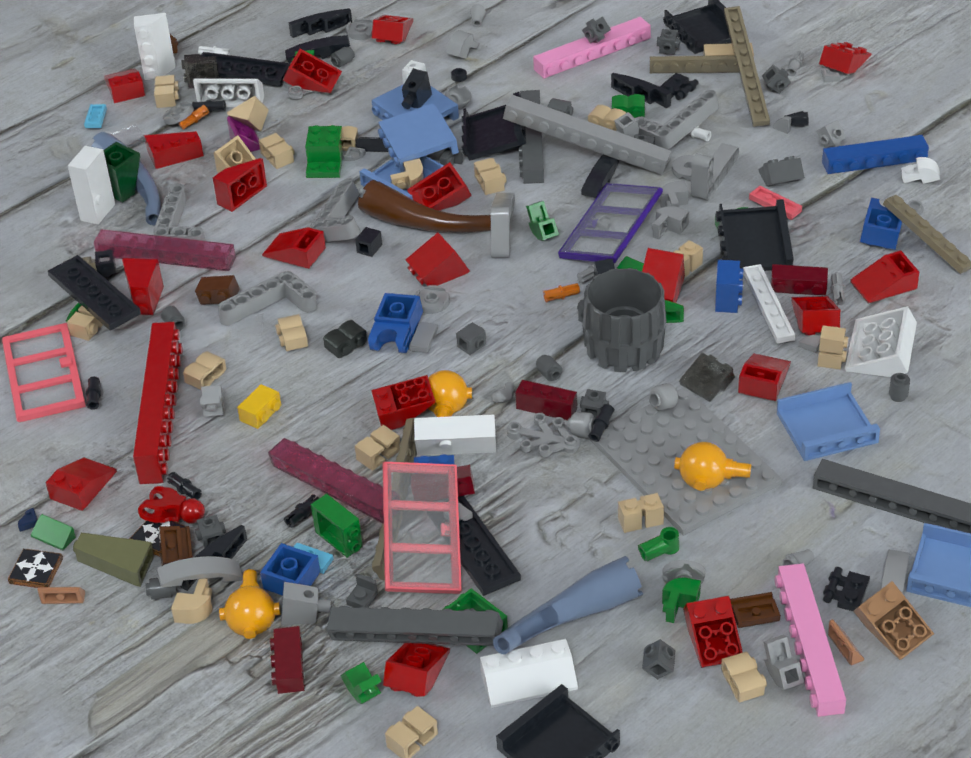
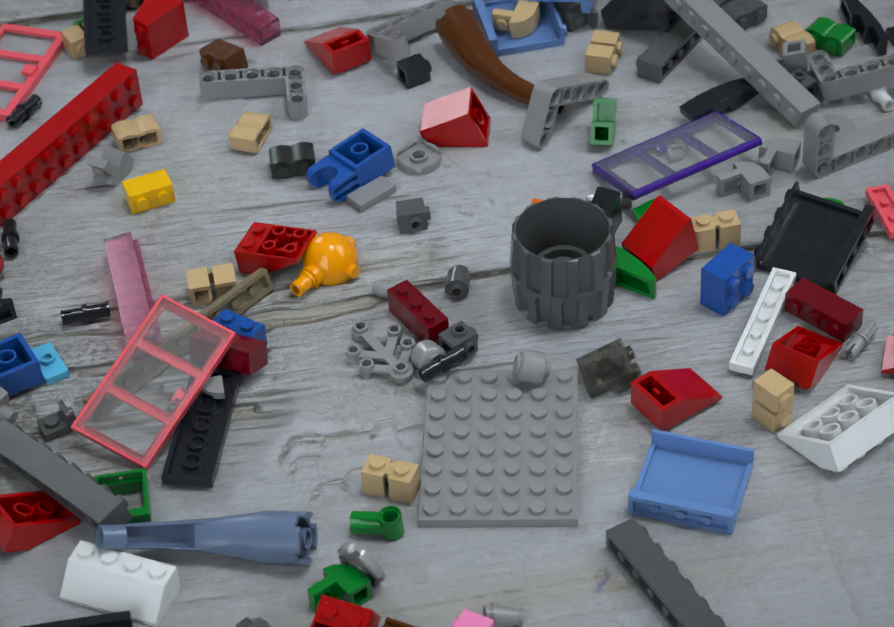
camera: 35 degrees right, 0 degrees up
(171, 314) = (159, 69): dark grey brick -> none
(336, 525) = (90, 341): green window -> none
(440, 189) = (535, 46): red slope -> none
(455, 435) = (285, 306): white brick -> none
(706, 466) = (500, 462): light orange piece -> none
(899, 387) = (810, 482): dark grey brick -> none

